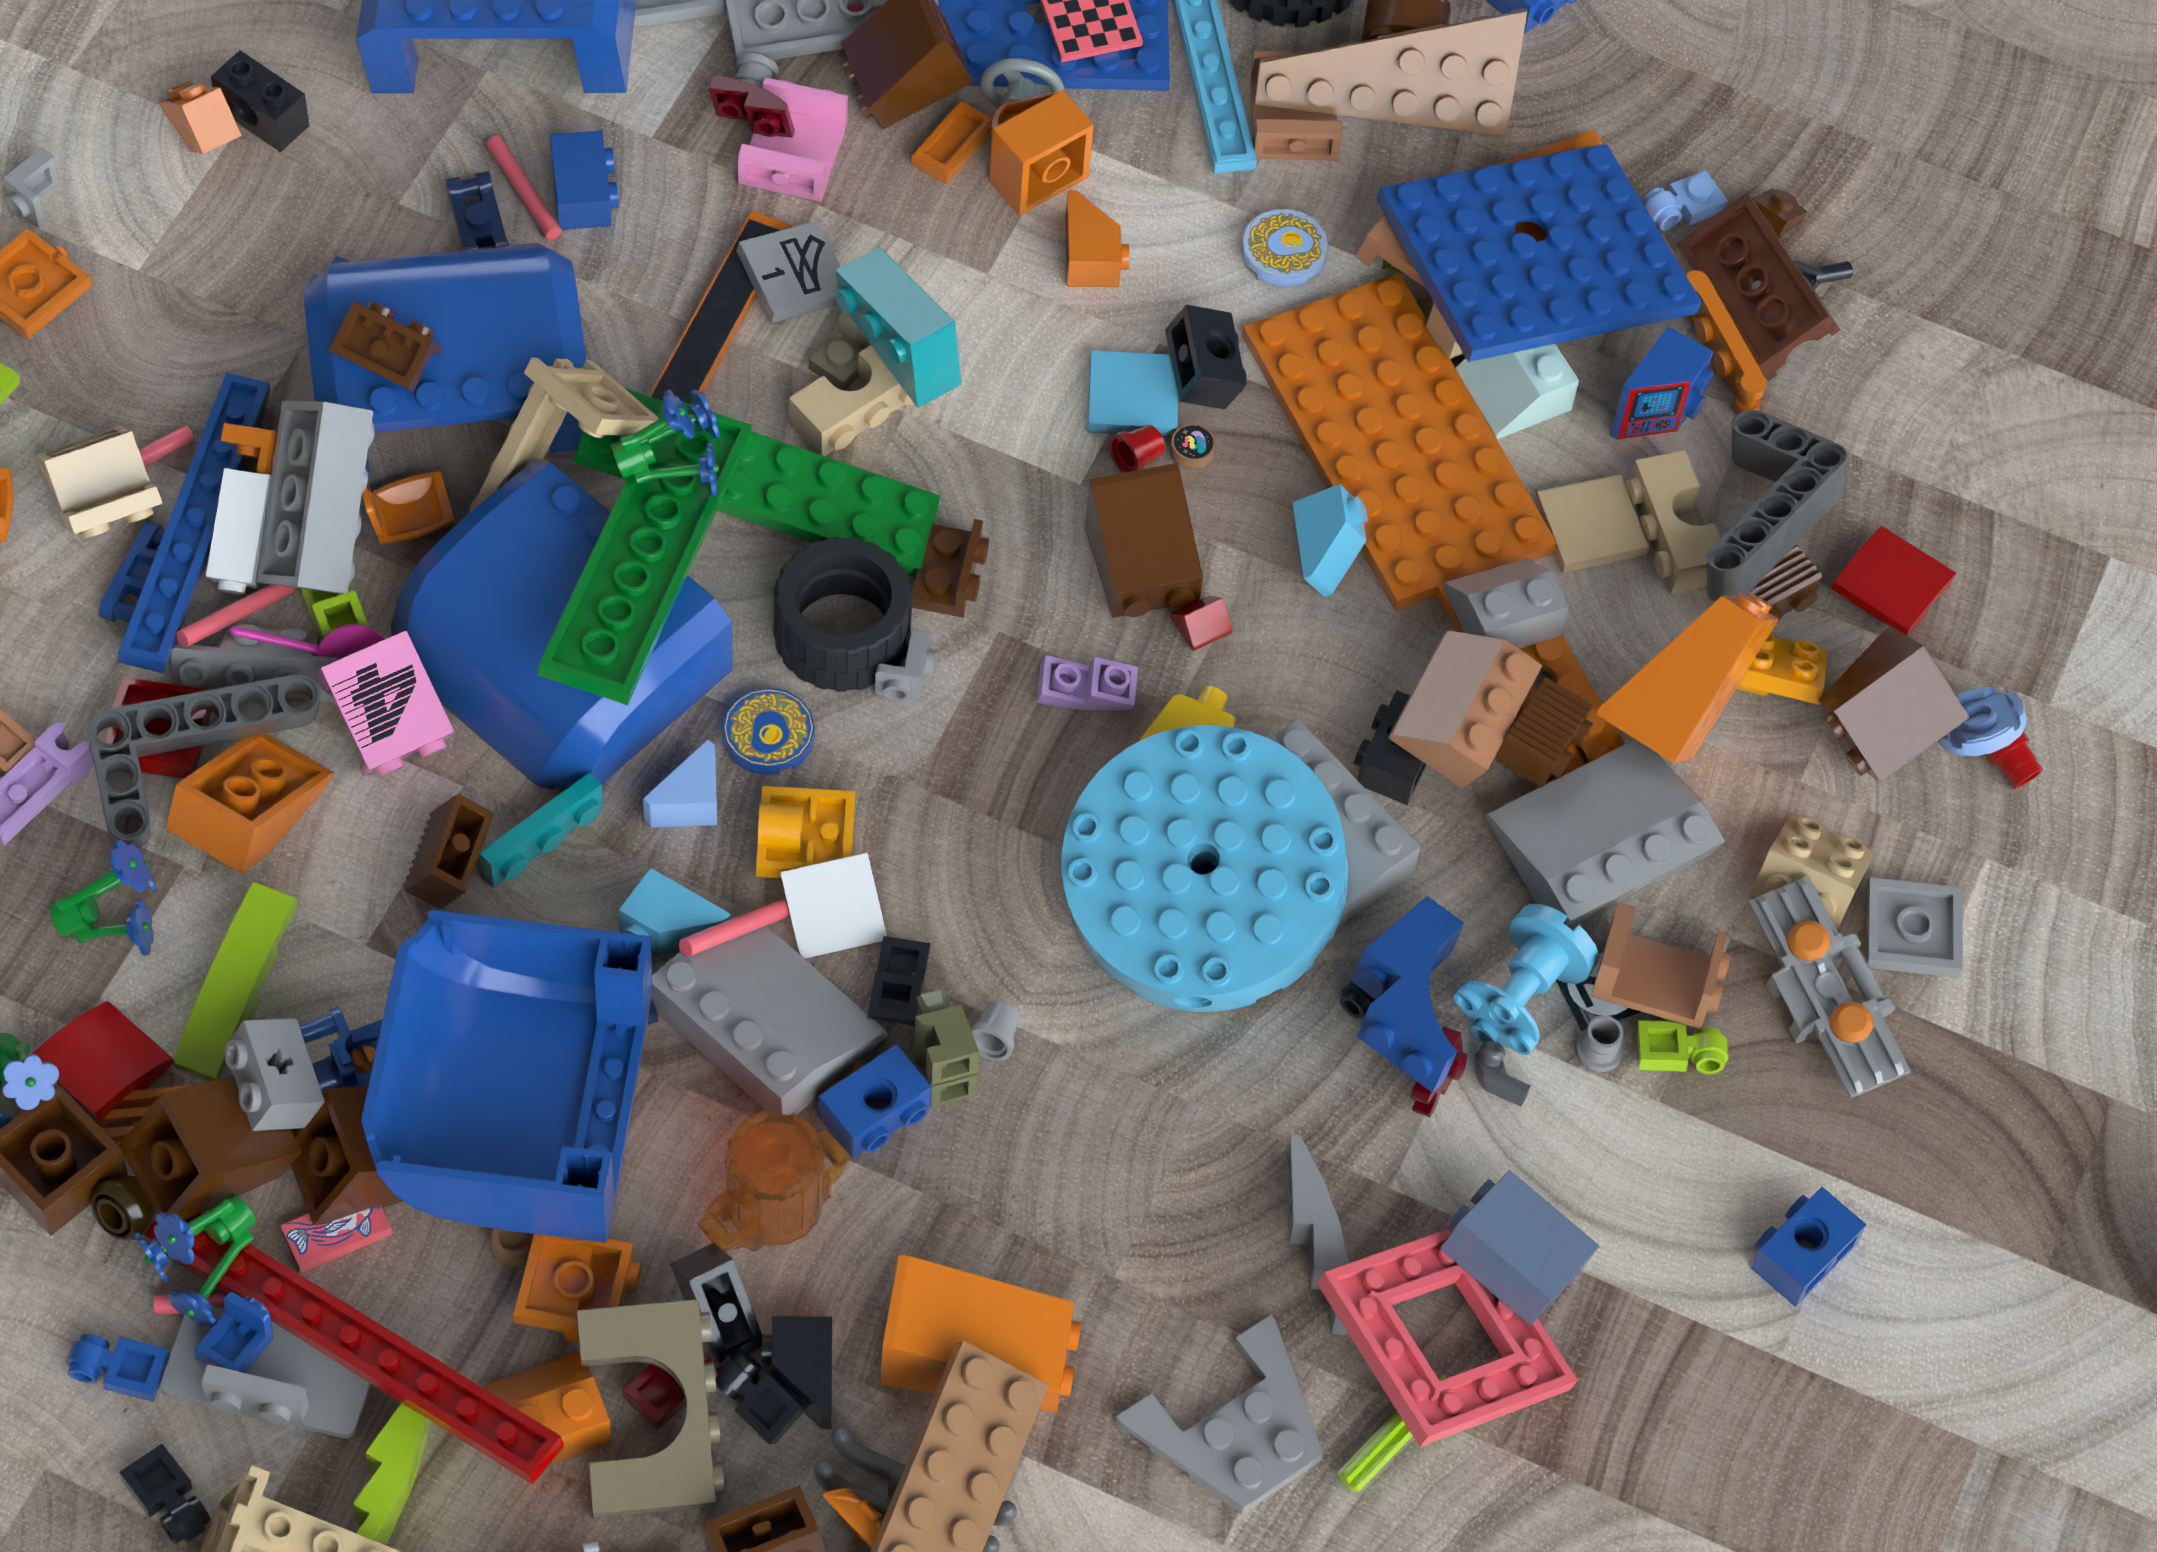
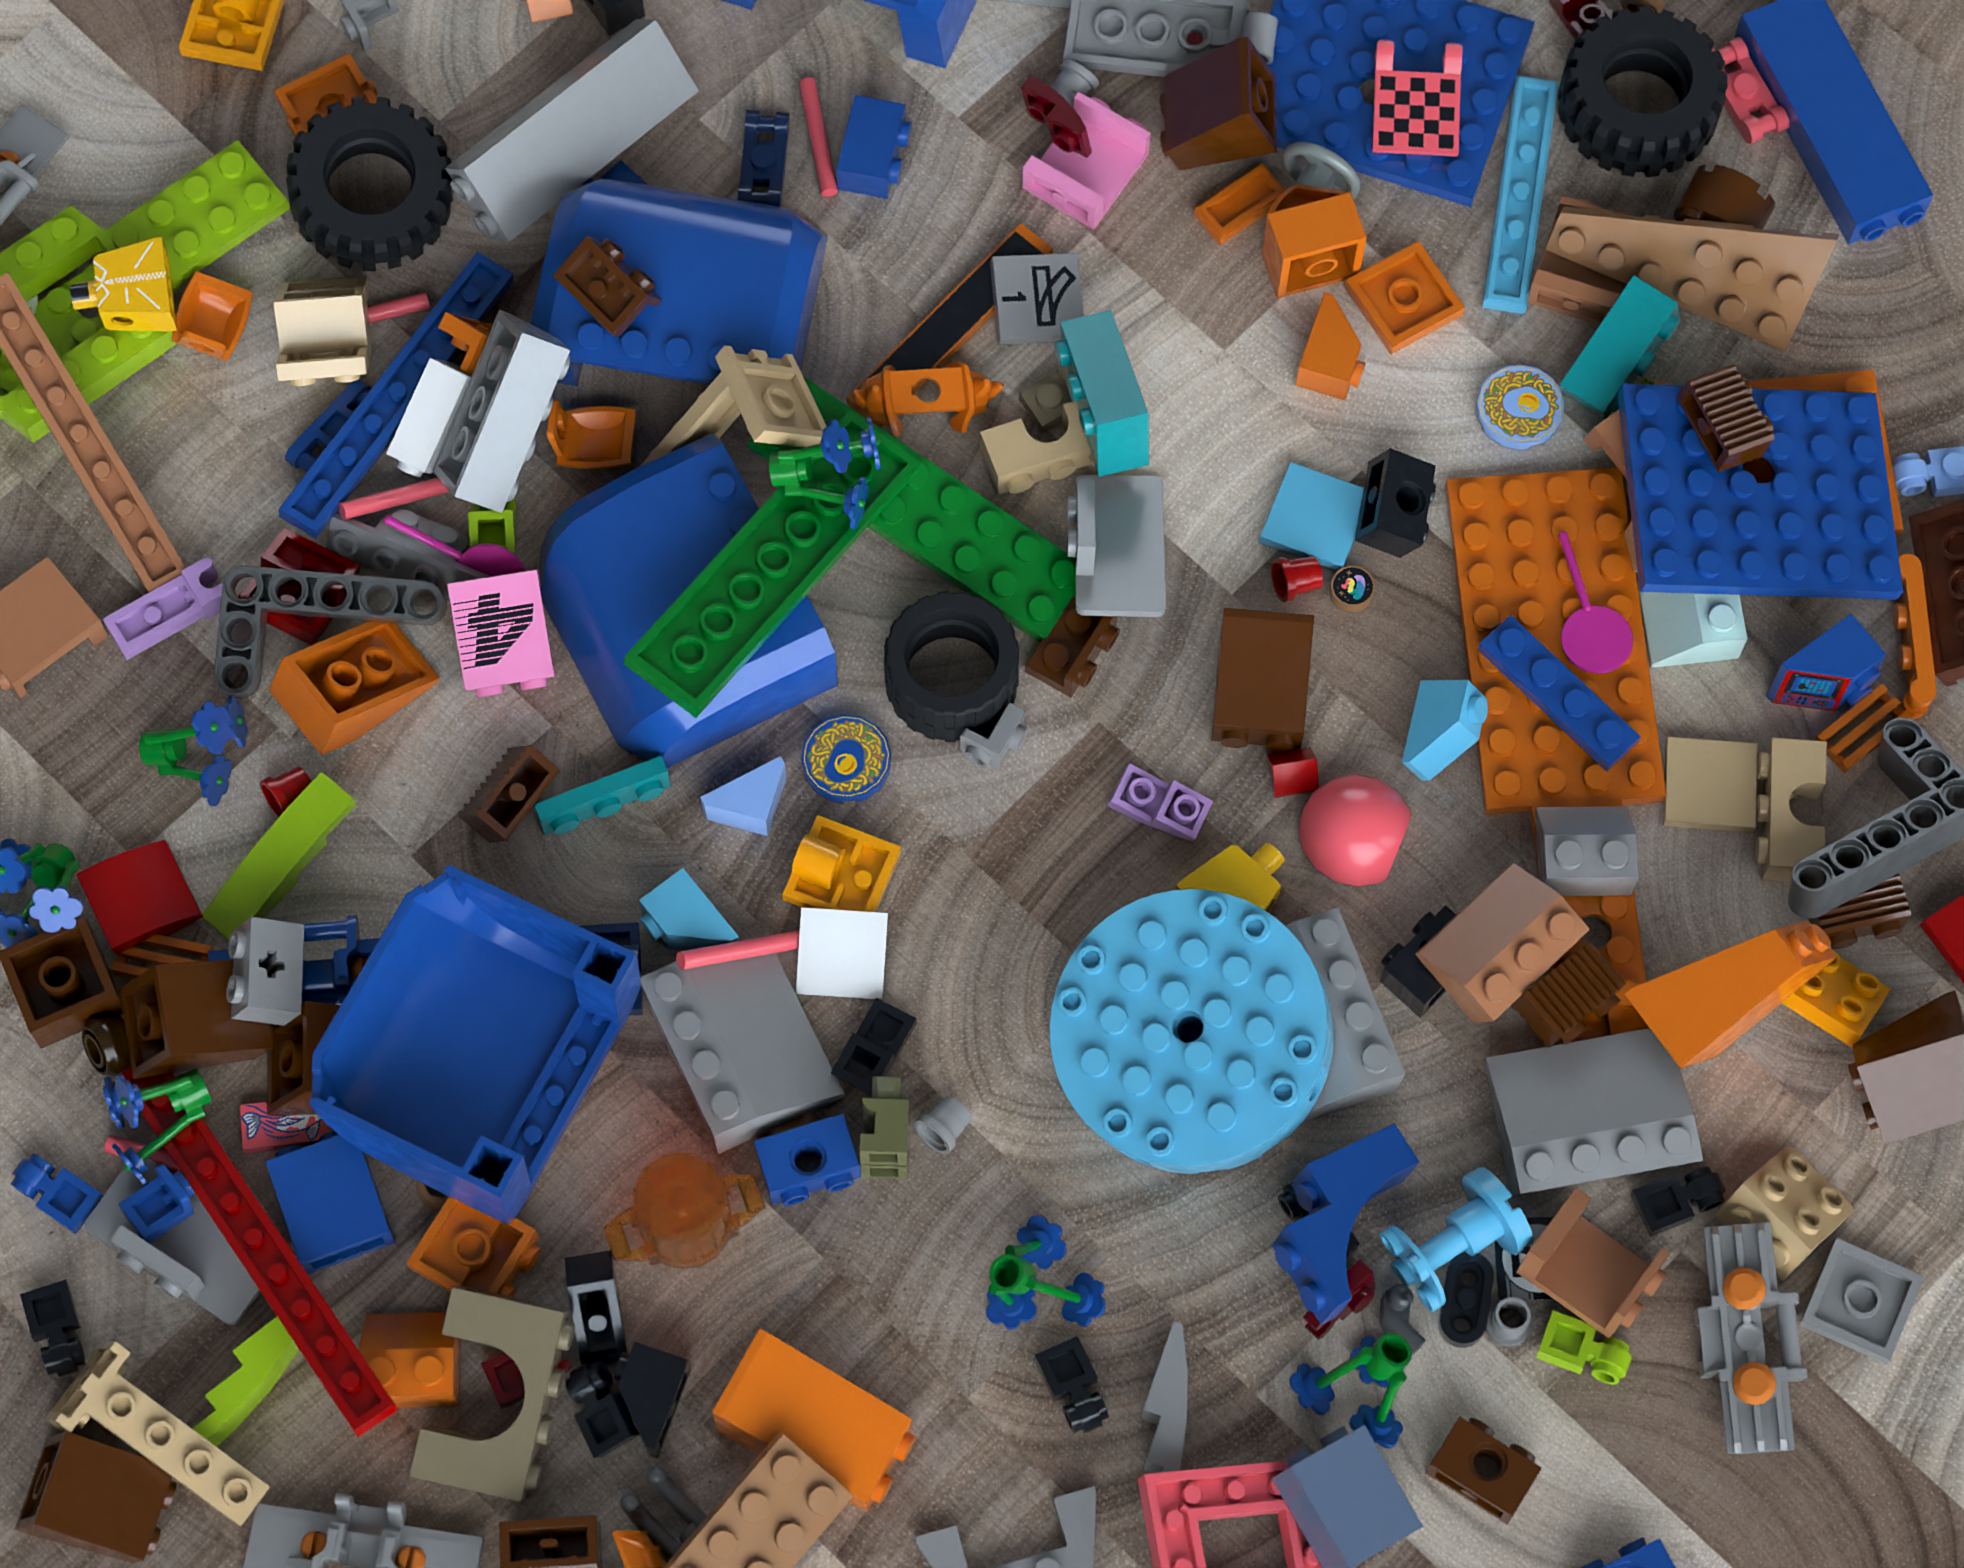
camera: 25 degrees right, 10 degrees up
(97, 284) = (372, 130): none -> black tyre
(214, 919) = (284, 789): none -> red piece
(283, 234) = (571, 130): none -> light grey brick
(410, 1281) = (329, 1202): none -> blue brick
(751, 370) = (960, 390): none -> orange piece
(960, 463) = (1118, 545): none -> light grey bracket
(1127, 1131) = (1015, 1279): none -> blue plant
(1139, 182) = (1404, 297): none -> orange tile
(1207, 1218) = (1066, 1373): none -> black plate
(1280, 653) = (1354, 829): none -> coral cylinder
(1361, 166) = (1621, 347): none -> teal wedge
(1424, 478) = (1559, 693): none -> blue plate
(1433, 421) = (1593, 636): none -> dark pink piece
(1488, 188) = (1726, 417): none -> reddish brown brick
(1493, 1119) = (1378, 1362): none -> plant
(1556, 1040) = (1466, 1301): none -> black plate
(1609, 1193) = (1497, 1494): none -> reddish brown brick
(1704, 897) = (1667, 1204): none -> black plate
(1723, 412) = (1889, 705): none -> orange tile

